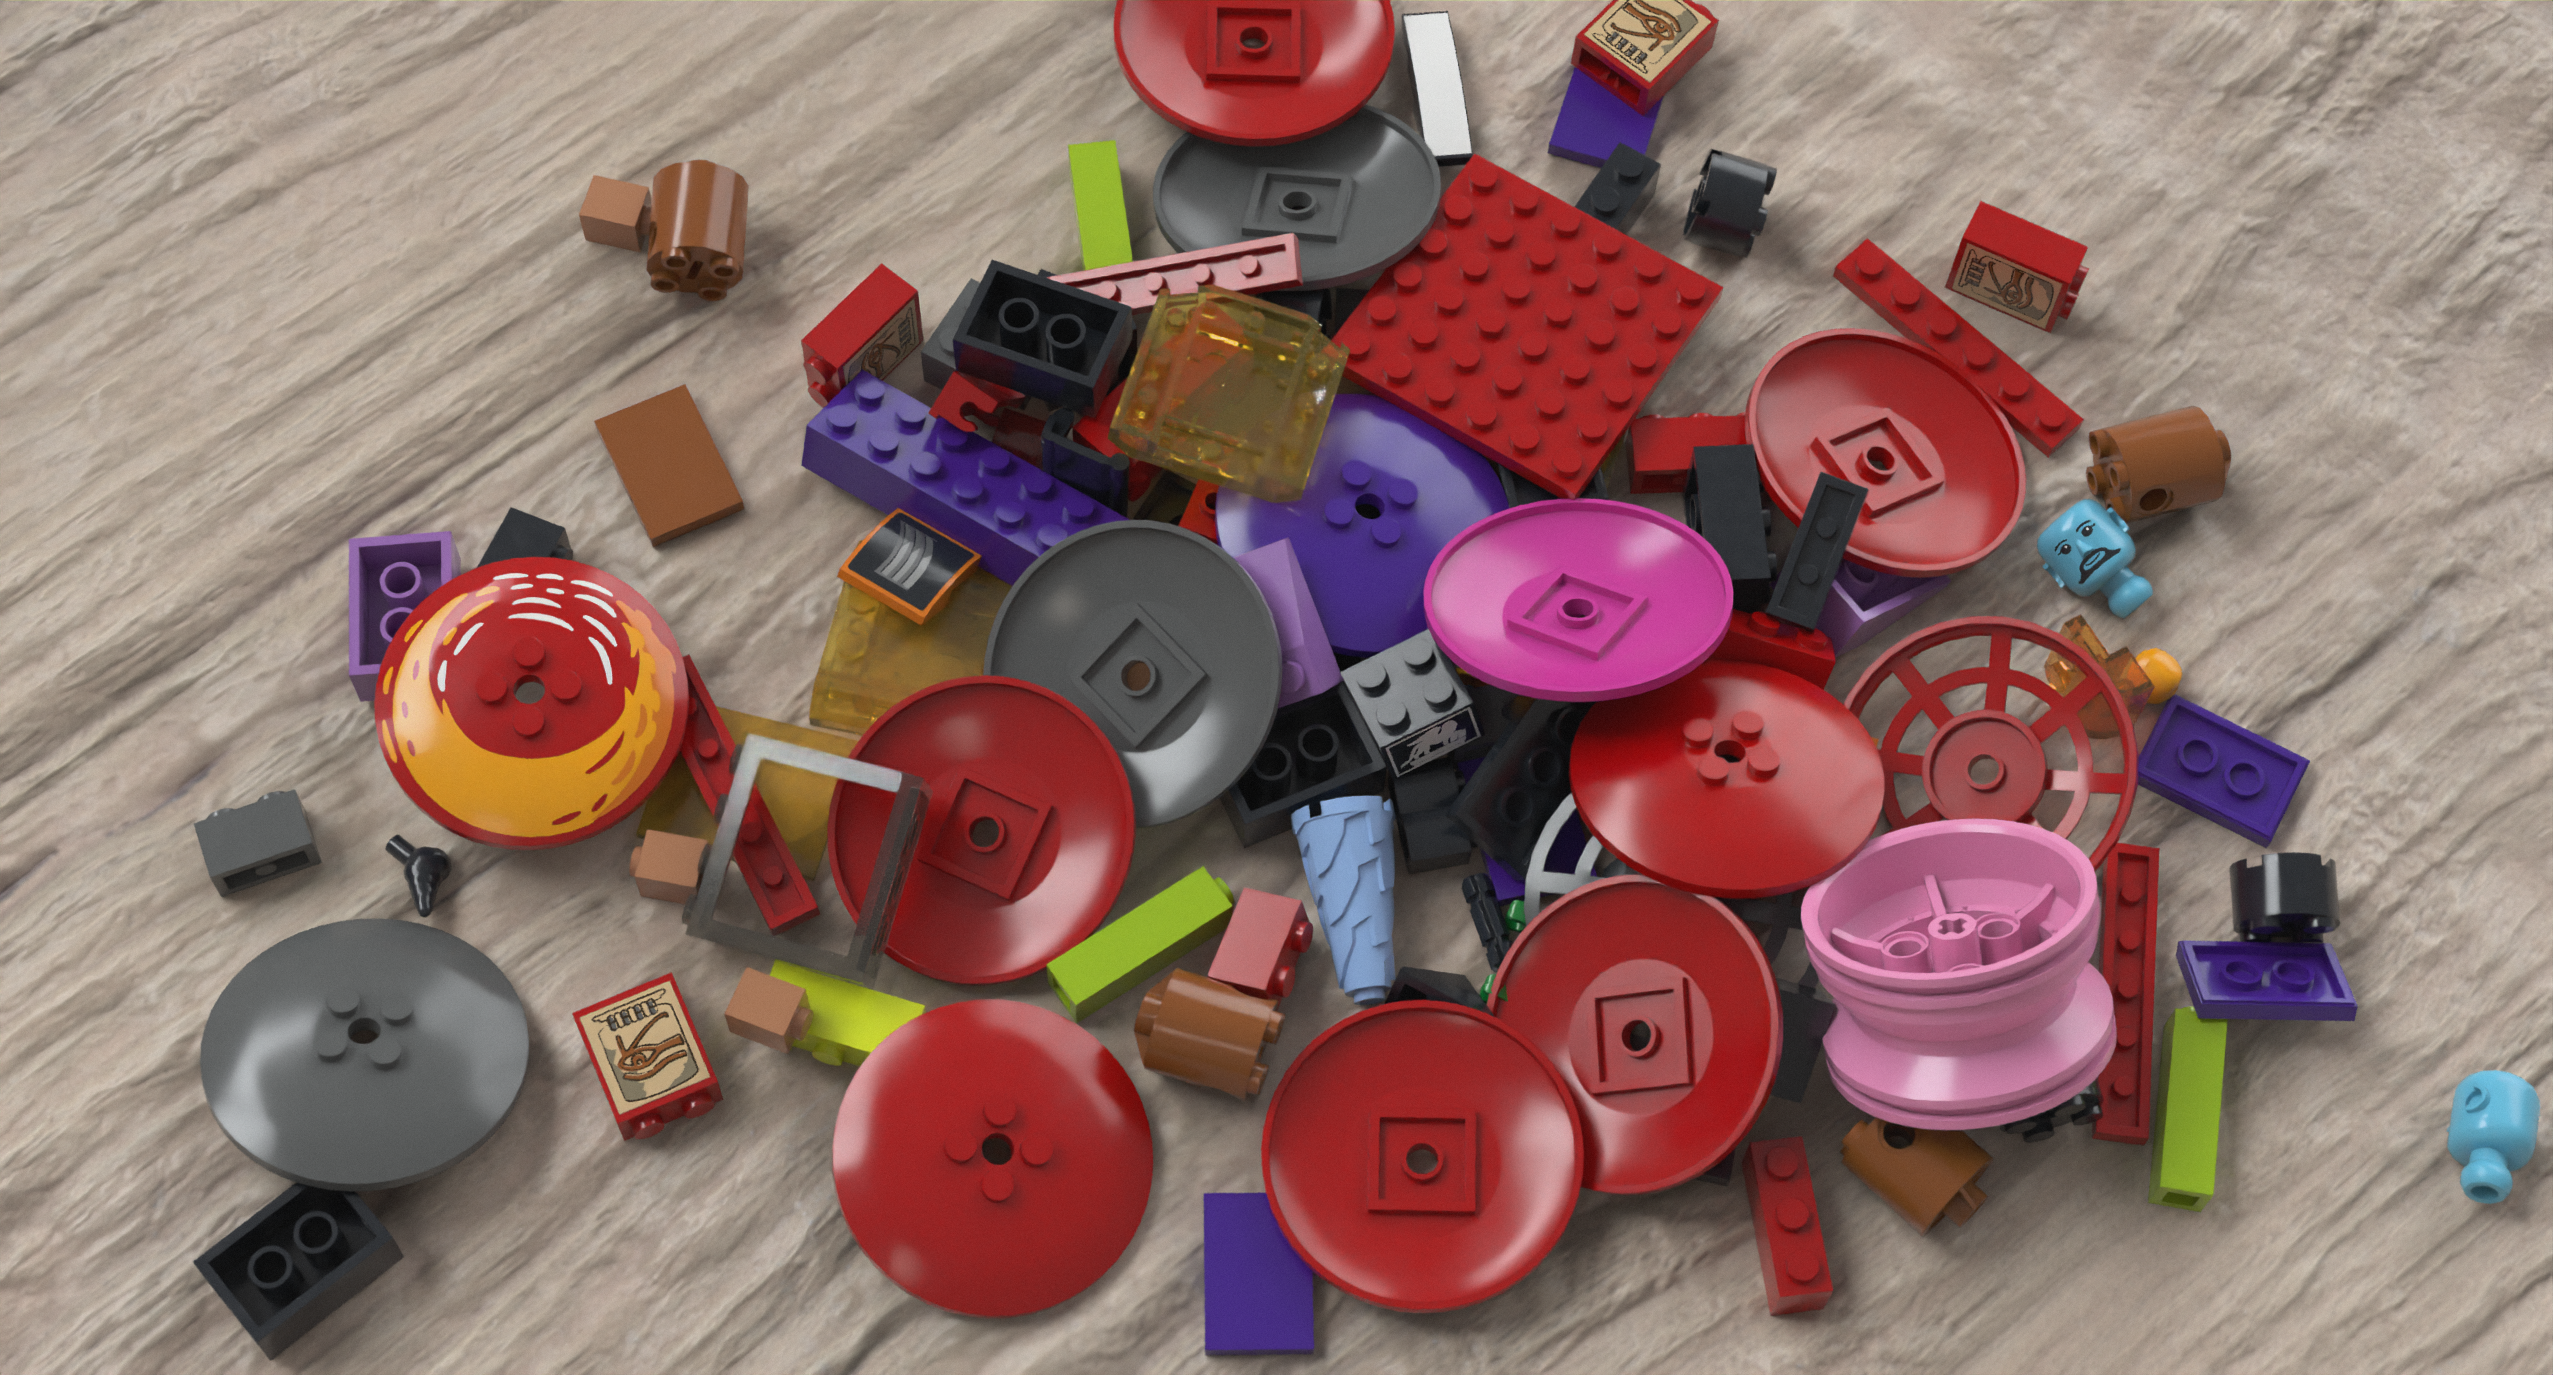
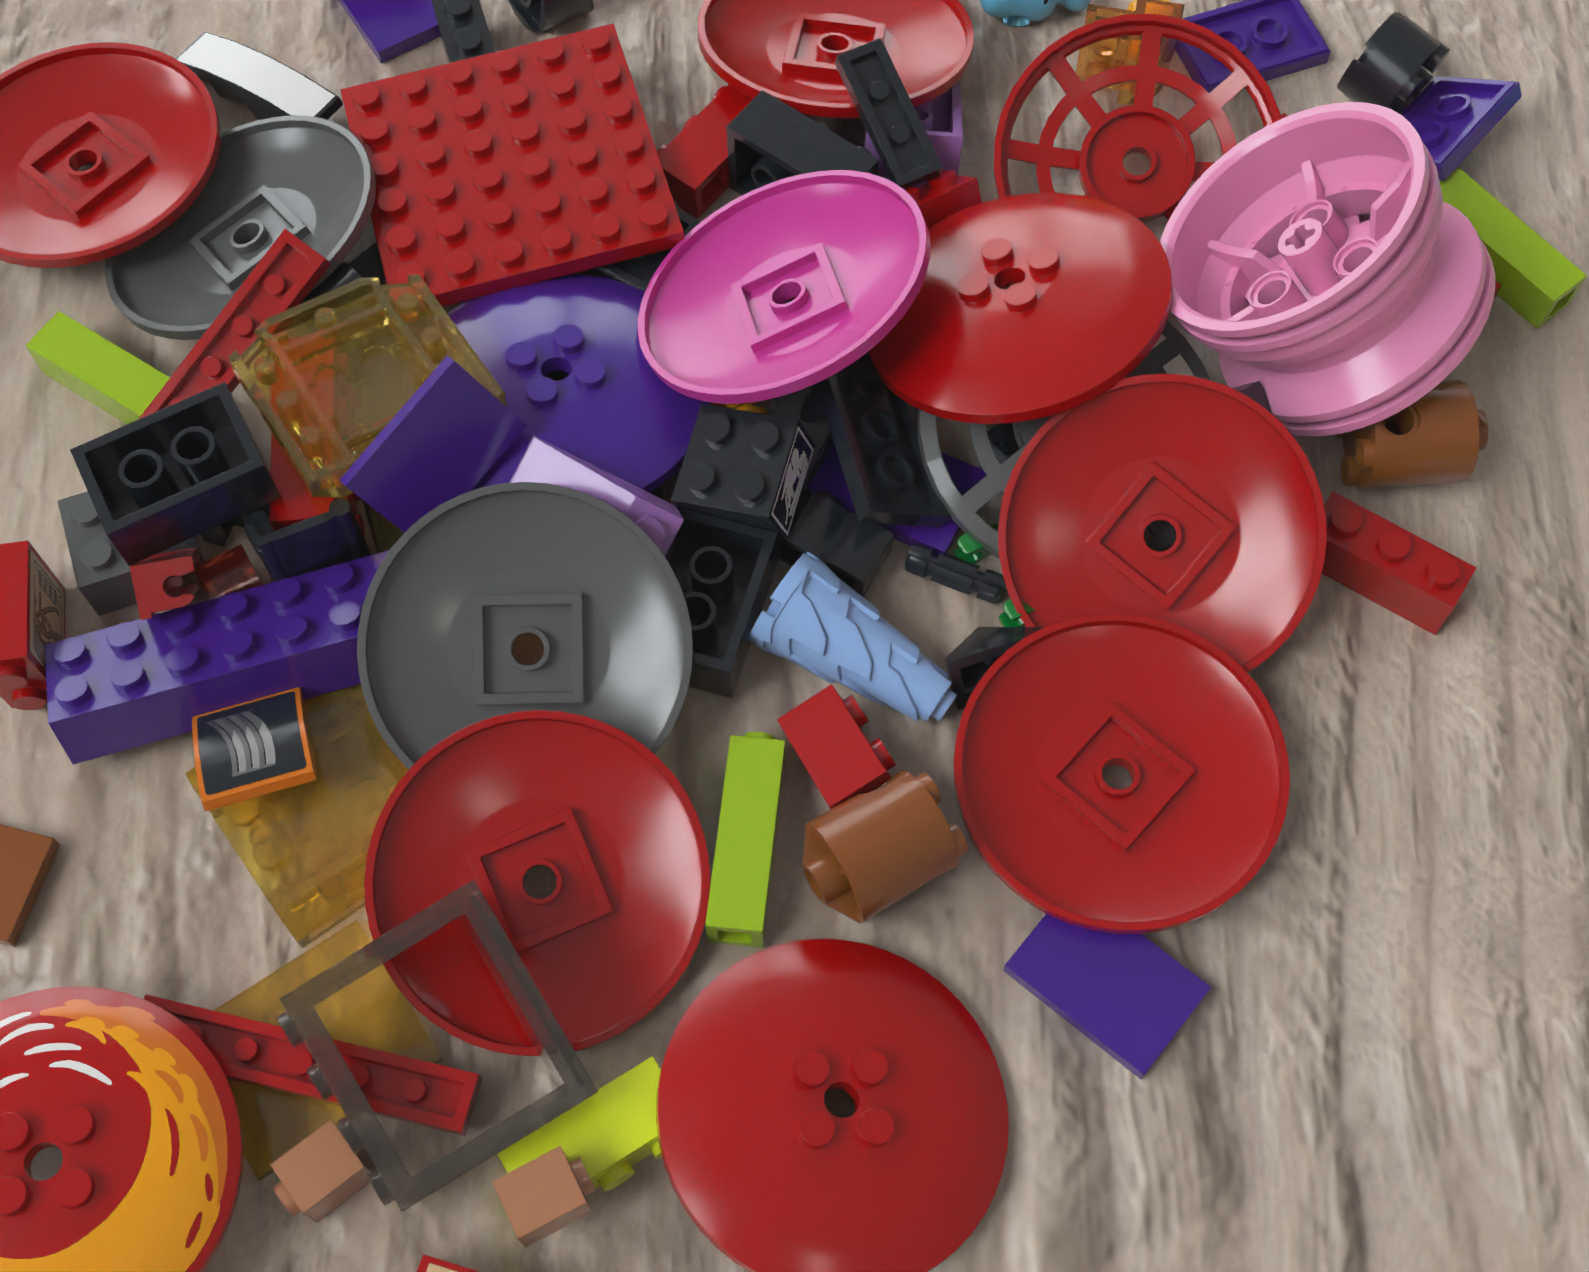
camera: 45 degrees left, 0 degrees up
(1217, 482) = (433, 447): none -> dark purple tile

